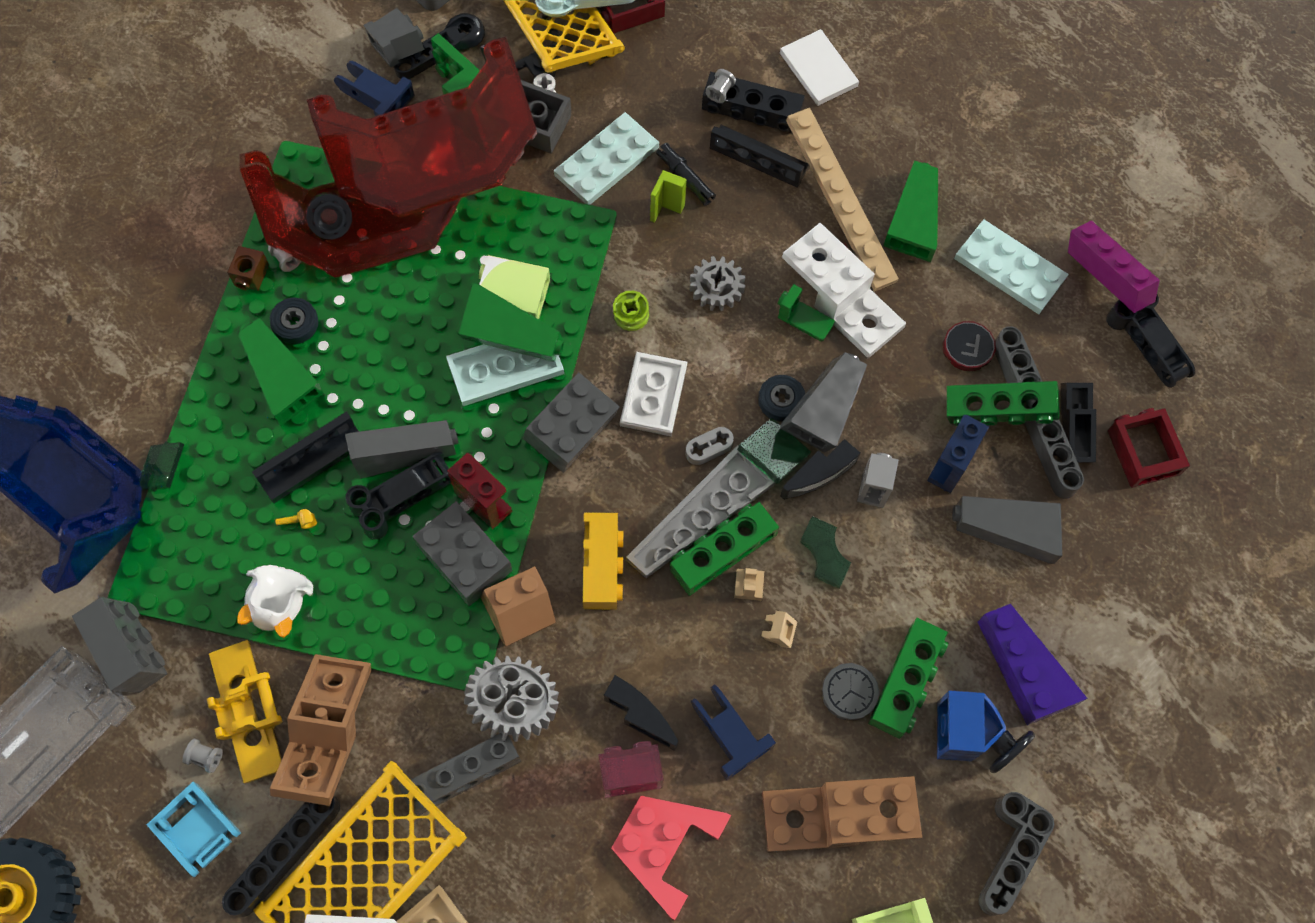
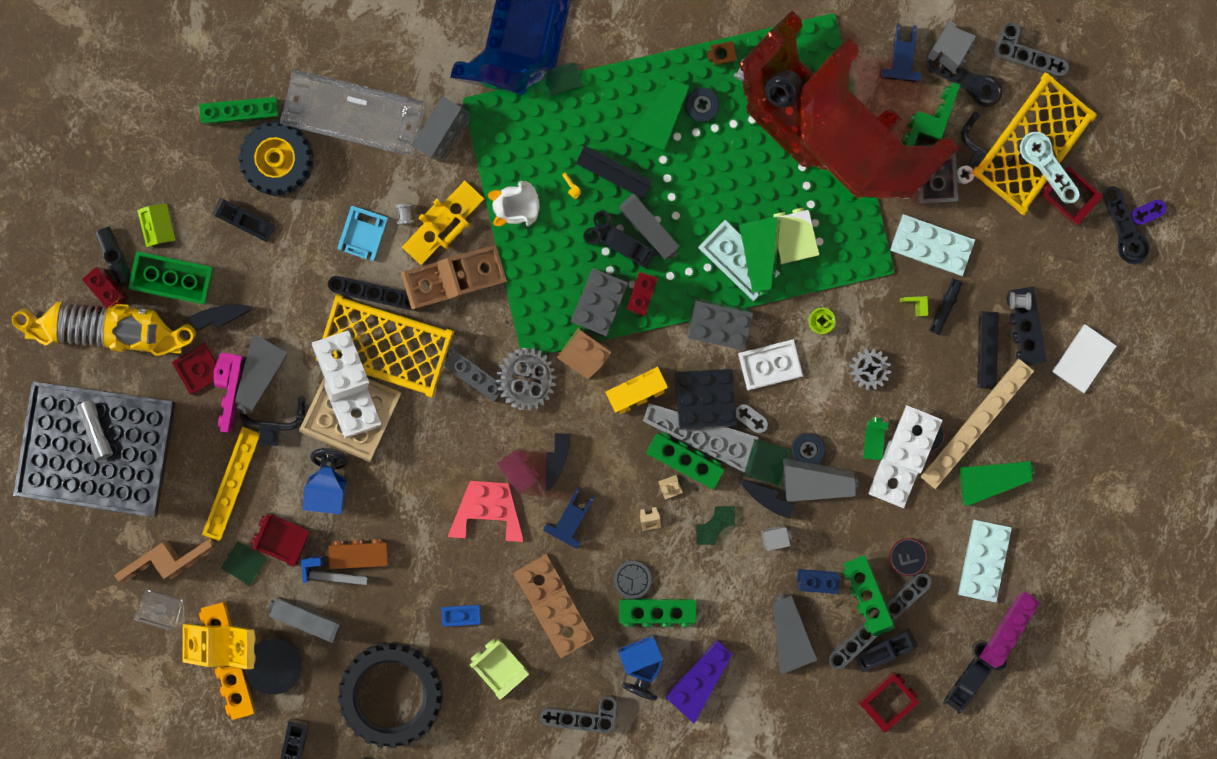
camera: 65 degrees right, 20 degrees up
(657, 486) = (705, 399): none -> black plate

